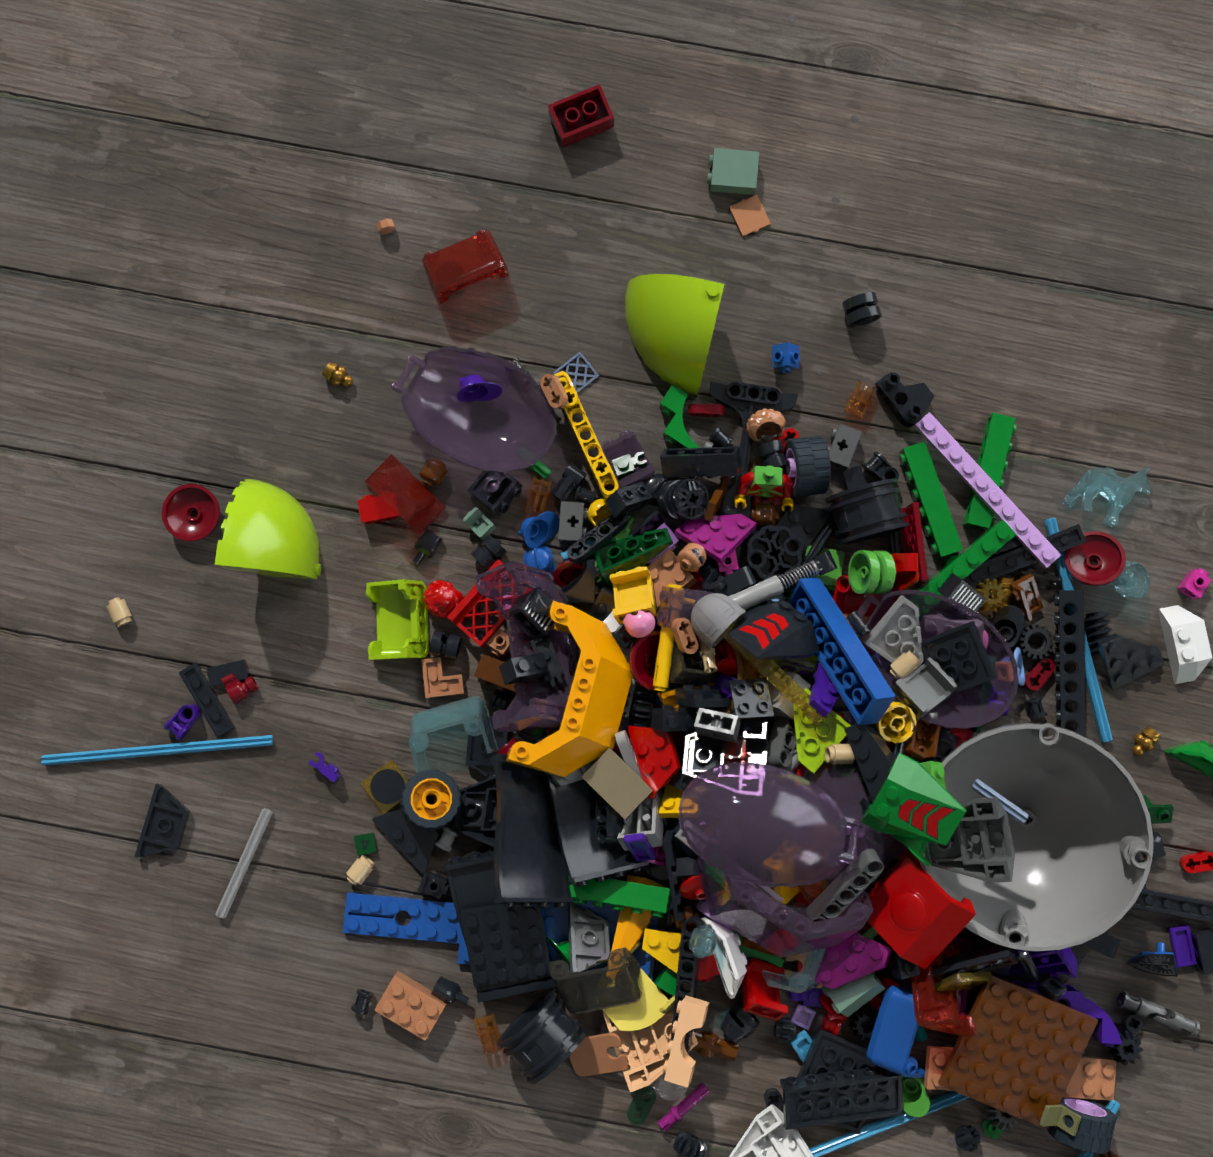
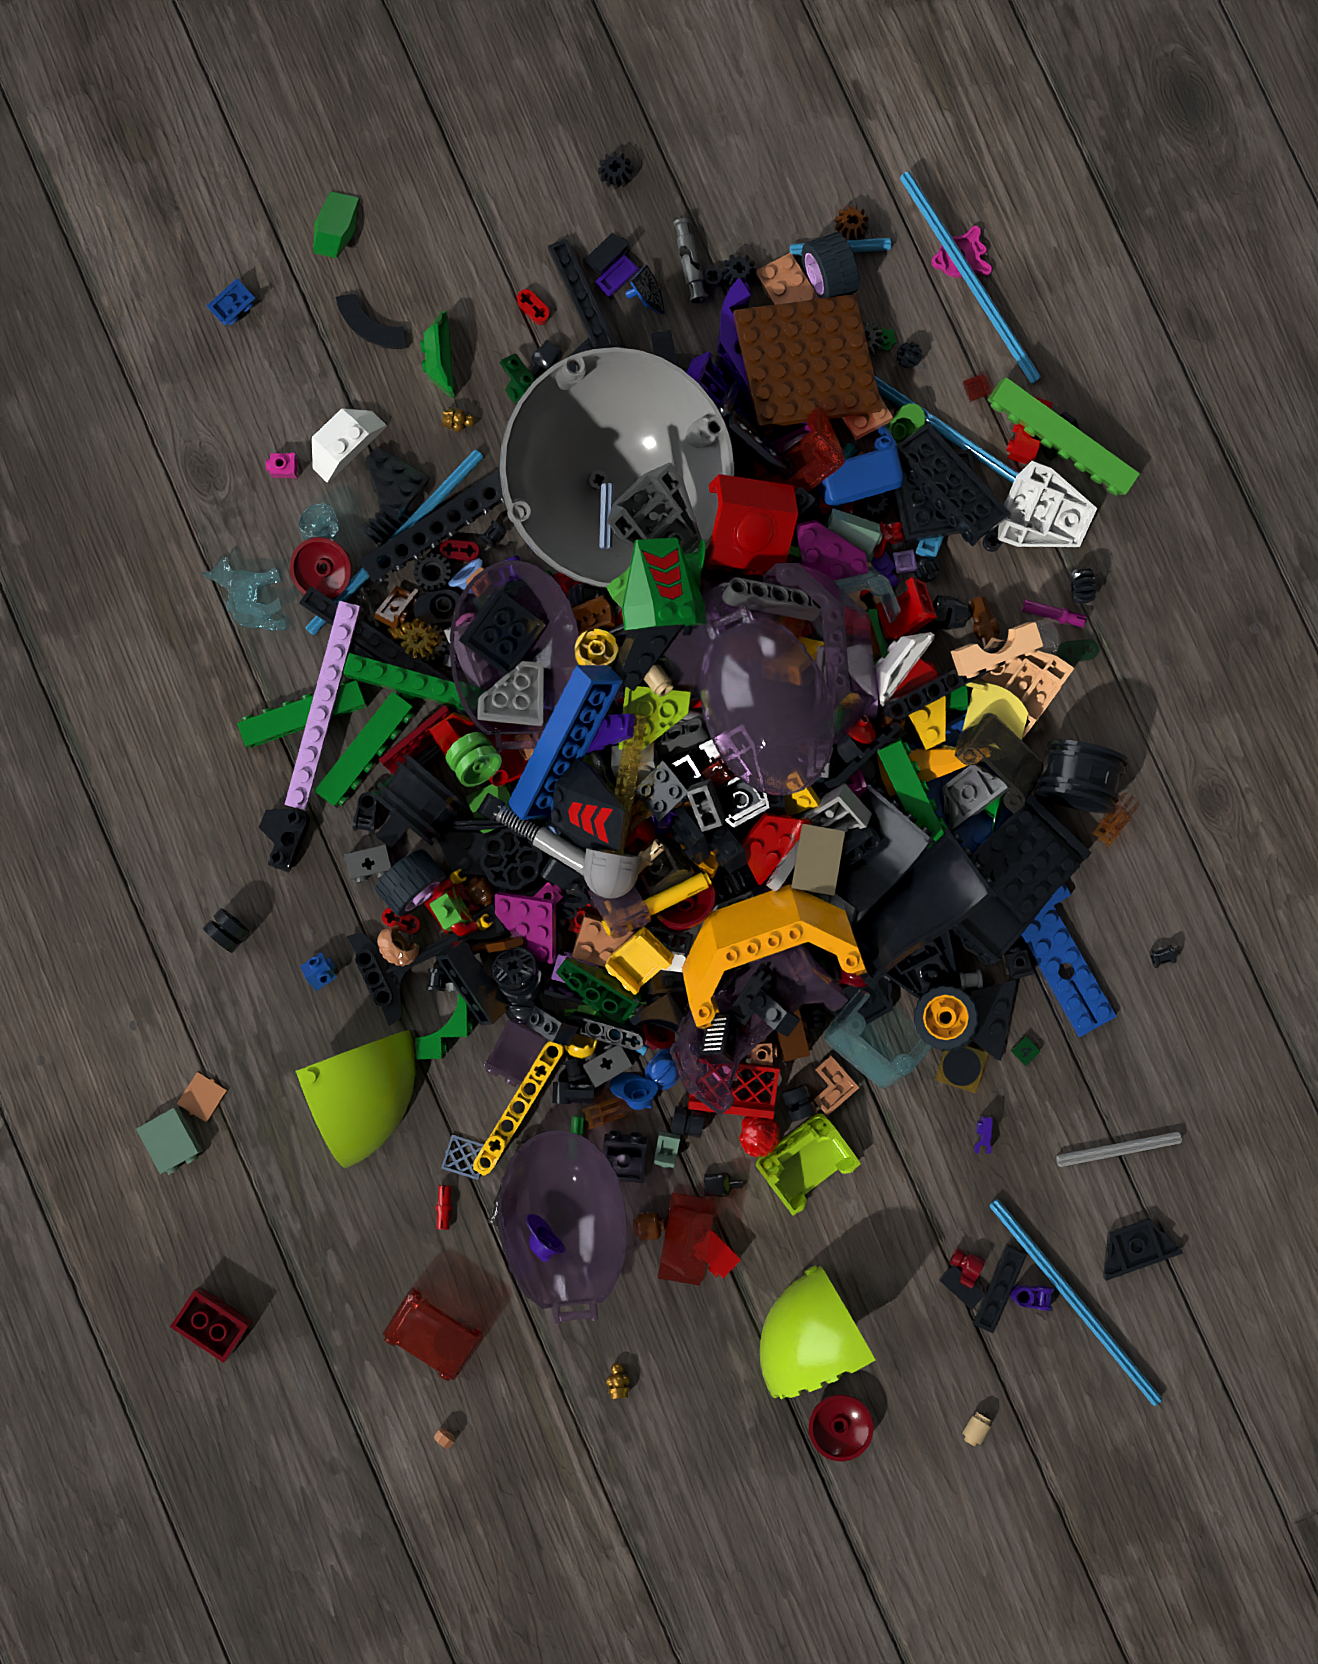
camera: 130 degrees left, 0 degrees up
(360, 870) = (1051, 1039): tan brick -> none
(410, 1005) = (1135, 910): nougat brick -> none
(449, 991) = (1100, 885): black piece -> none
(540, 602) = (704, 1039): black tile -> none
(550, 334) = (443, 1207): none -> red pin
(555, 390) = (498, 1163): nougat beam -> none
(593, 1057) = (1066, 720): nougat piece -> none
(626, 465) = (521, 1050): plate -> none
(639, 847) = (859, 801): dark purple tile -> none
(640, 624) = (663, 935): bright pink hair -> none
(684, 636) = (645, 888): nougat beam -> none
(692, 557) = (567, 930): nougat head -> none
(703, 941) = (902, 691): clear light blue head -> none
(706, 410) = (418, 1011): dark red beam -> none
(772, 454) = (421, 921): black wheel -> none
(858, 401) = (315, 875): clear orange arm -> none
(858, 624) = (529, 740): black pin -> none
(904, 665) = (538, 675): tan brick -> none
(924, 688) = (548, 644): dark grey panel -> none
(961, 592) = (437, 666): black brick -> none
(963, 981) = (780, 445): clear yellow tile -> none
(1052, 988) = (733, 365): black tile -> none
(1054, 1116) = (839, 295): olive bracket -> none

